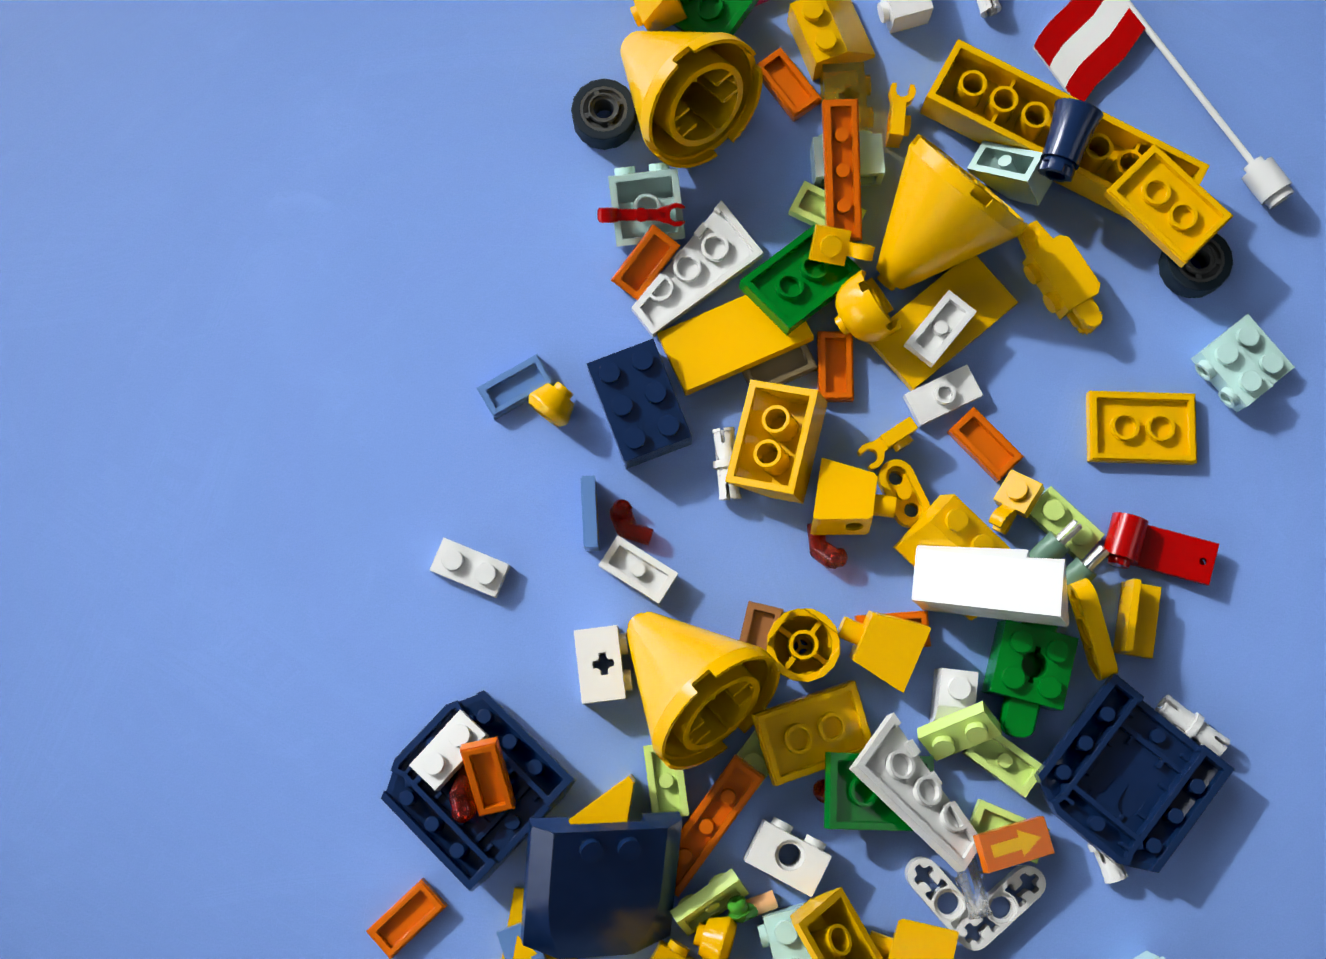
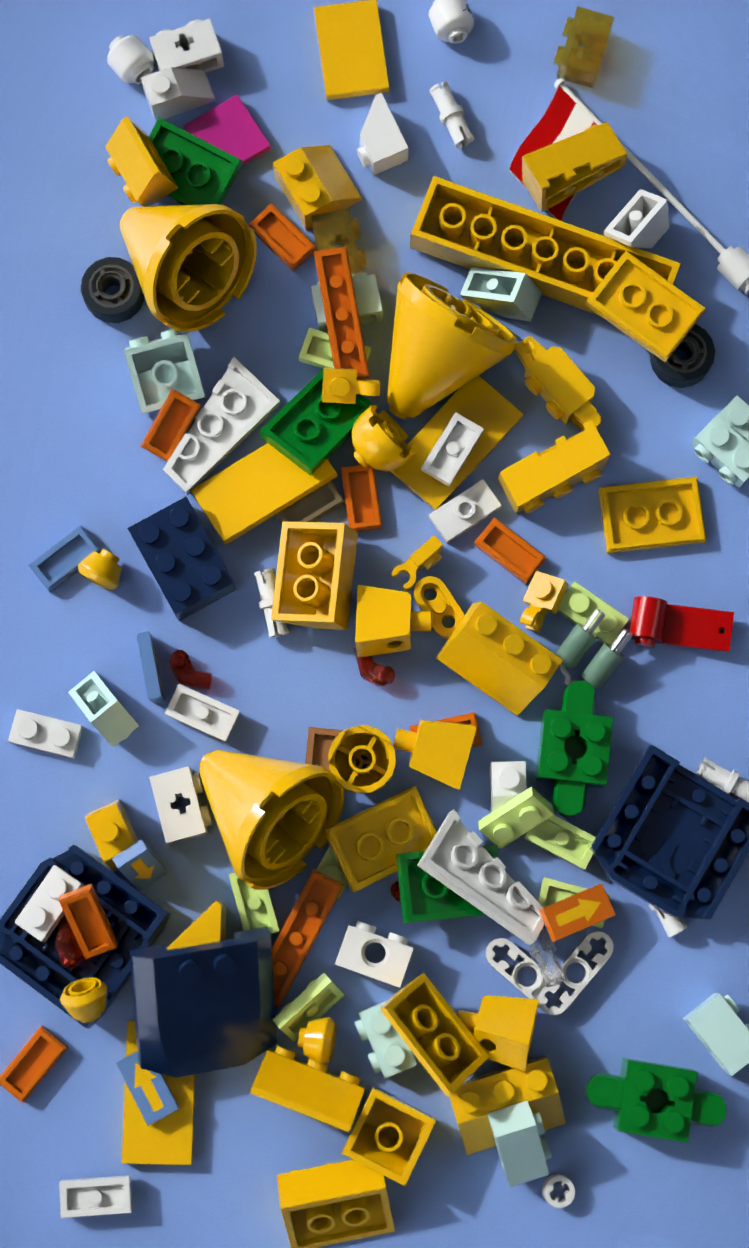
camera: 10 degrees left, 0 degrees up
(473, 861) = (85, 999): none -> yellow cone
(527, 687) = (111, 831): none -> yellow torso
(534, 551) = (103, 709): none -> light aqua slope
(550, 723) = (139, 865): none -> medium blue tile
(661, 214) = (133, 385): red piece -> none
(745, 909) = (339, 1010): arm -> none
(898, 122) = (390, 259): yellow plate -> none
(991, 584) = (524, 679): white slope -> none
(1047, 364) = (555, 469): none -> yellow wedge
(1068, 138) = (544, 257): dark blue plant -> none
(1092, 628) = (626, 706): yellow beam -> none
(1103, 48) = (572, 165): none -> yellow wedge
(1137, 619) = (669, 692): yellow panel -> none
(1171, 115) = (640, 221): none -> white slope

